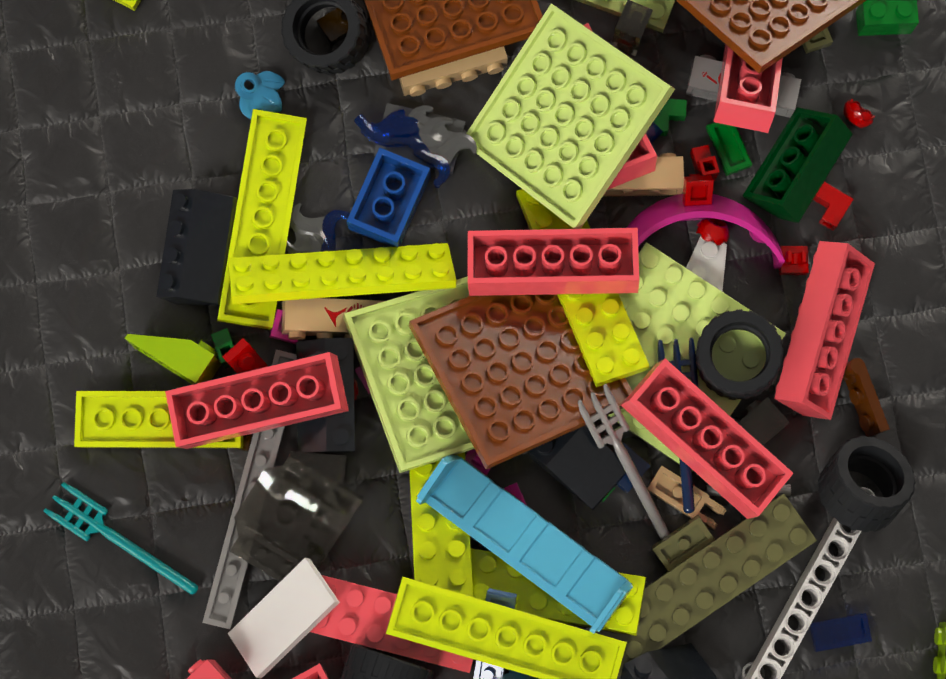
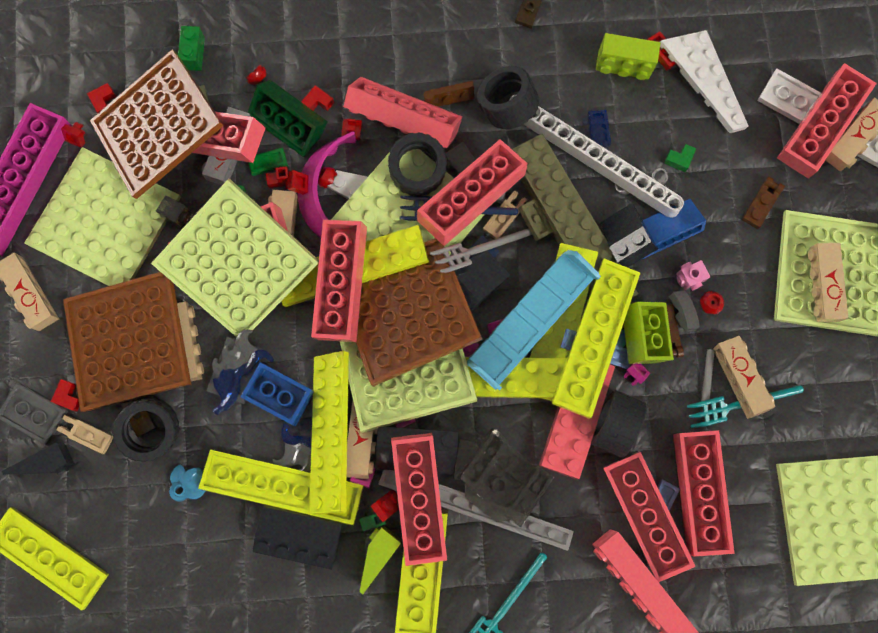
camera: 85 degrees left, 0 degrees up
(283, 618) = (570, 491): white tile -> none

